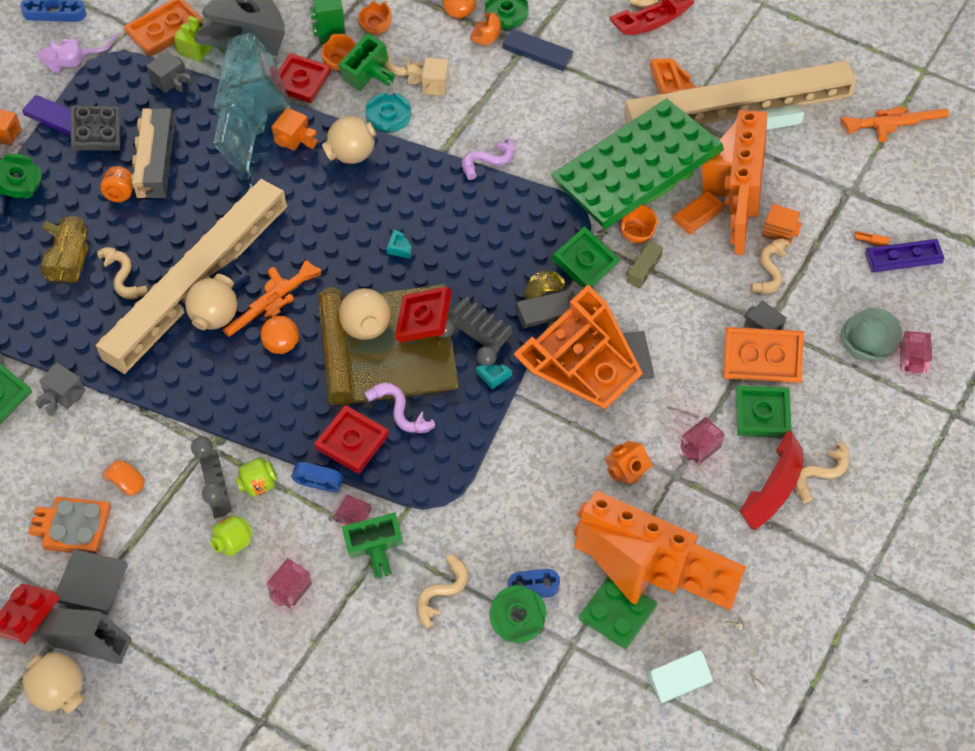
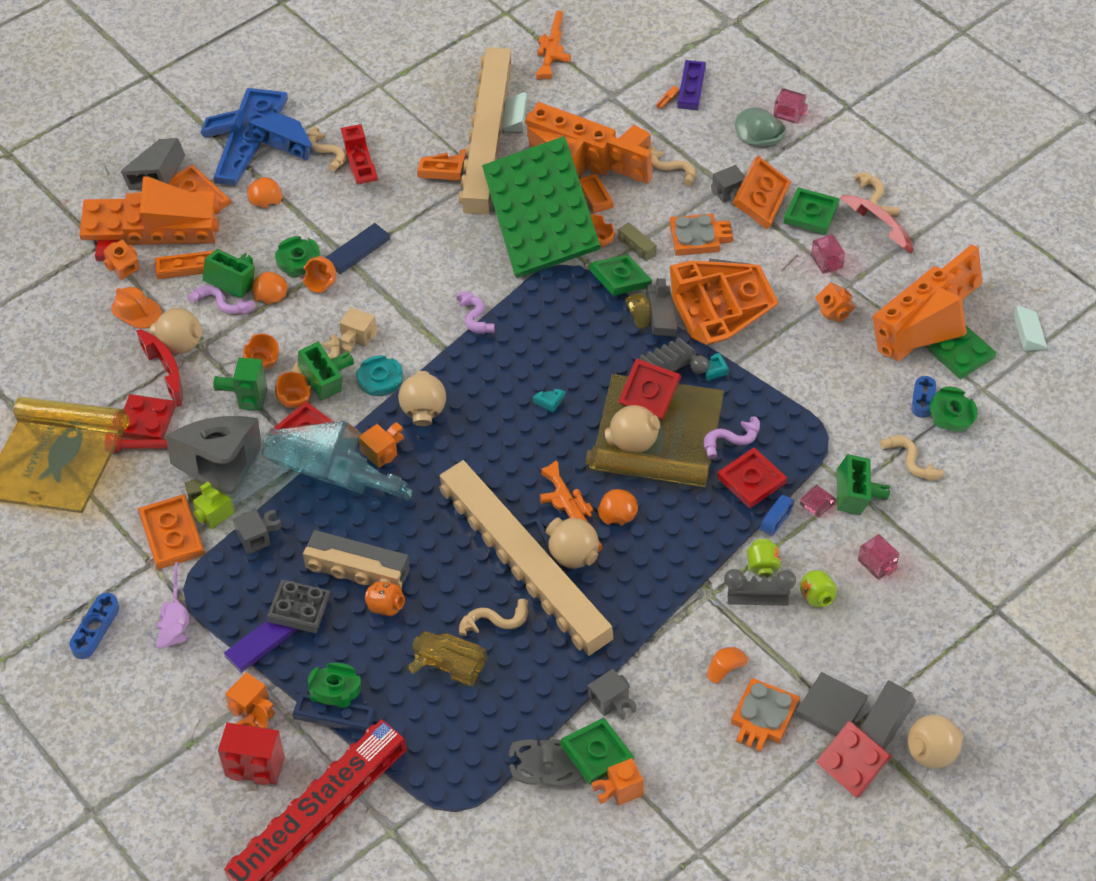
camera: 70 degrees left, 5 degrees down
(682, 316) = (699, 234): none -> piece

